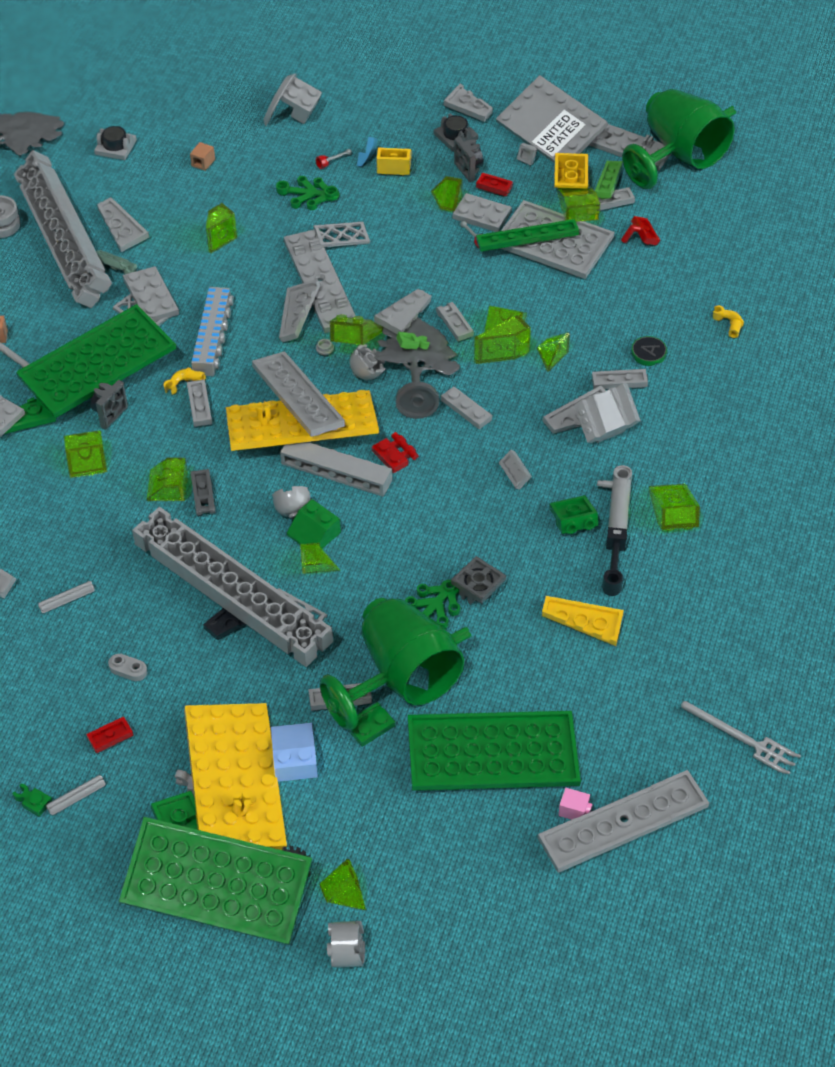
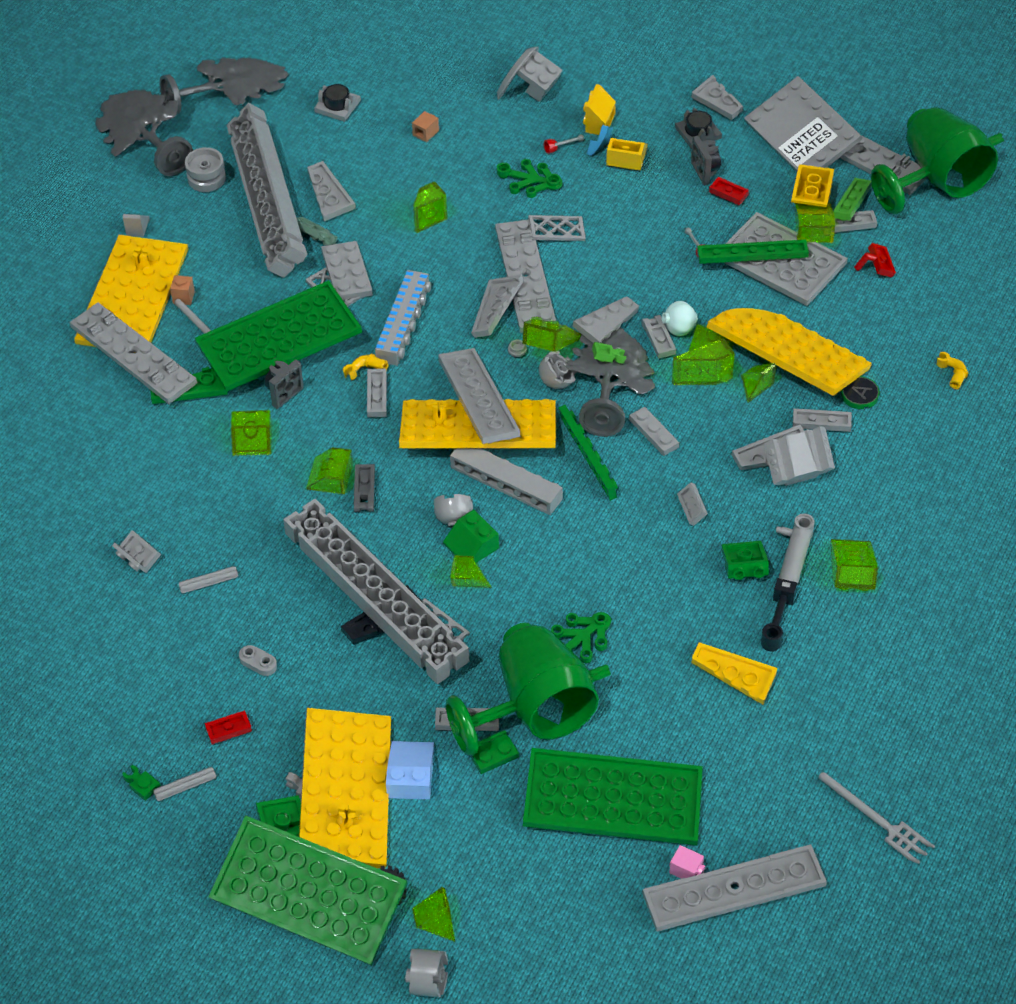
camera: 10 degrees right, 0 degrees up
(362, 125) = (598, 110): none -> yellow slope
(391, 456) = (564, 472): red plate -> none
(406, 430) = (591, 457): none -> green plate
(448, 193) = (678, 196): clear neon green slope -> none
(471, 302) = (679, 318): none -> light aqua plant
(479, 580) = (632, 617): dark grey piece -> none
(482, 212) = (710, 220): light grey plate -> none
(527, 153) = (770, 160): light grey tile -> none
(579, 316) = (791, 347): none -> yellow plate

